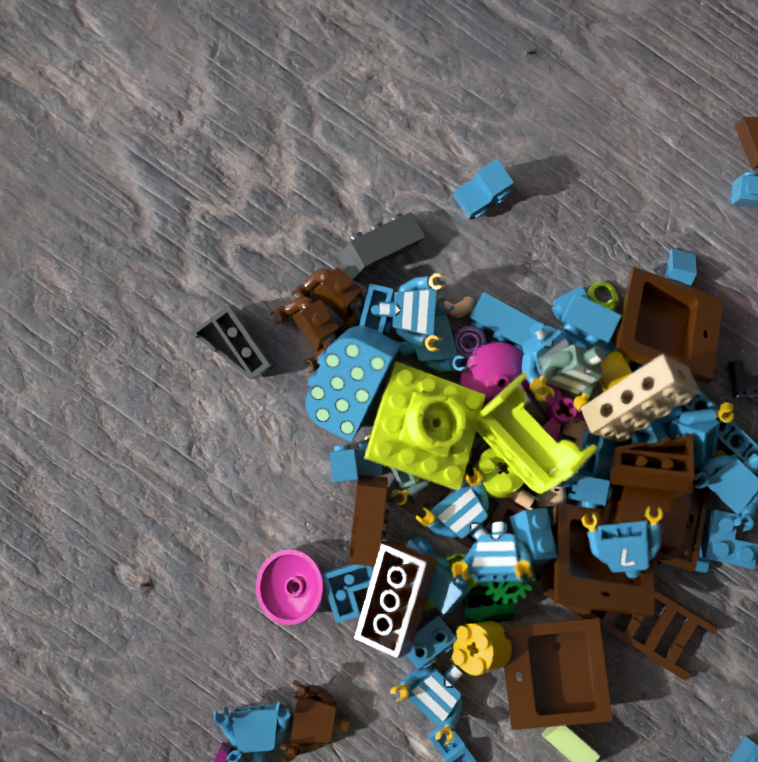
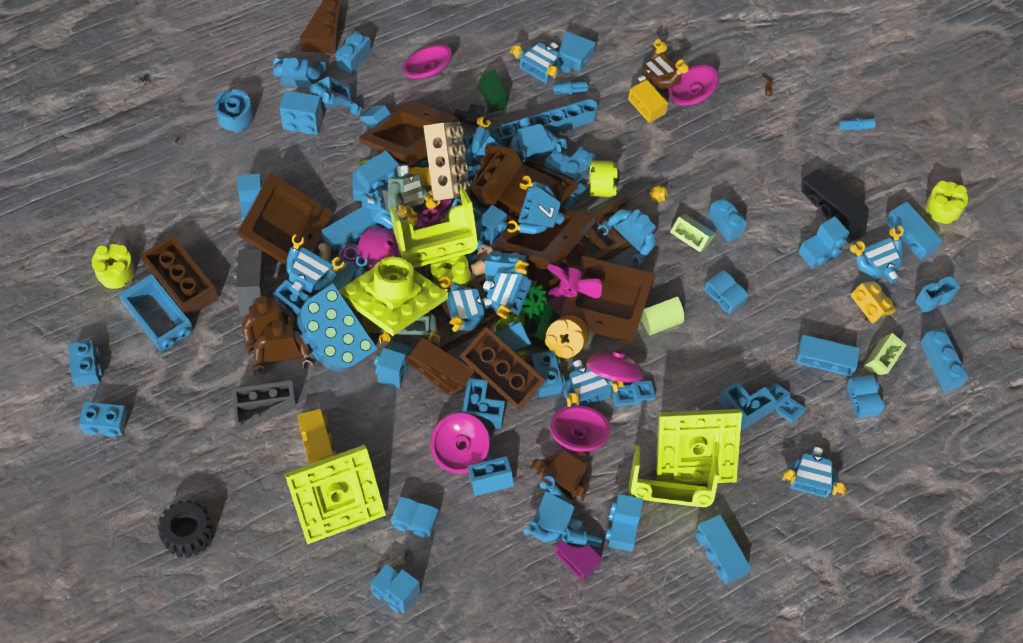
camera: 70 degrees left, 25 degrees down
(39, 338) = (182, 513): none -> black tyre
(96, 598) = (395, 588): none -> dark azure brick
(139, 184) = (103, 419): none -> dark azure brick
(160, 482) = (335, 494): none -> neon yellow piece
(185, 577) = (414, 517): none -> dark azure brick
(193, 124) = (84, 363): none -> dark azure brick
(220, 427) = (315, 436): none -> yellow wedge
(269, 637) = (490, 475): none -> dark azure brick
(290, 128) = (151, 286): none -> dark azure piece
(326, 70) = (113, 265): none -> neon yellow brick
(344, 164) = (179, 276): none -> reddish brown brick
(383, 724) = (580, 428): none -> dark pink dish
(467, 722) = (615, 366): none -> dark pink dish
(468, 242) = (280, 214): none -> reddish brown piece
(548, 624) = (572, 283): none -> dark pink piece
(611, 94) = (233, 110): none -> dark azure brick
(634, 179) = (301, 112): none -> dark azure brick
(669, 664) = (635, 228): none -> dark azure torso
(681, 201) = (333, 94): none -> dark azure torso
(693, 141) = (297, 71): none -> dark azure torso
(707, 731) = (692, 232): none -> yellowish green brick
(726, 591) = (602, 177): none -> neon yellow brick
(743, 665) = (658, 194): none -> yellow plate

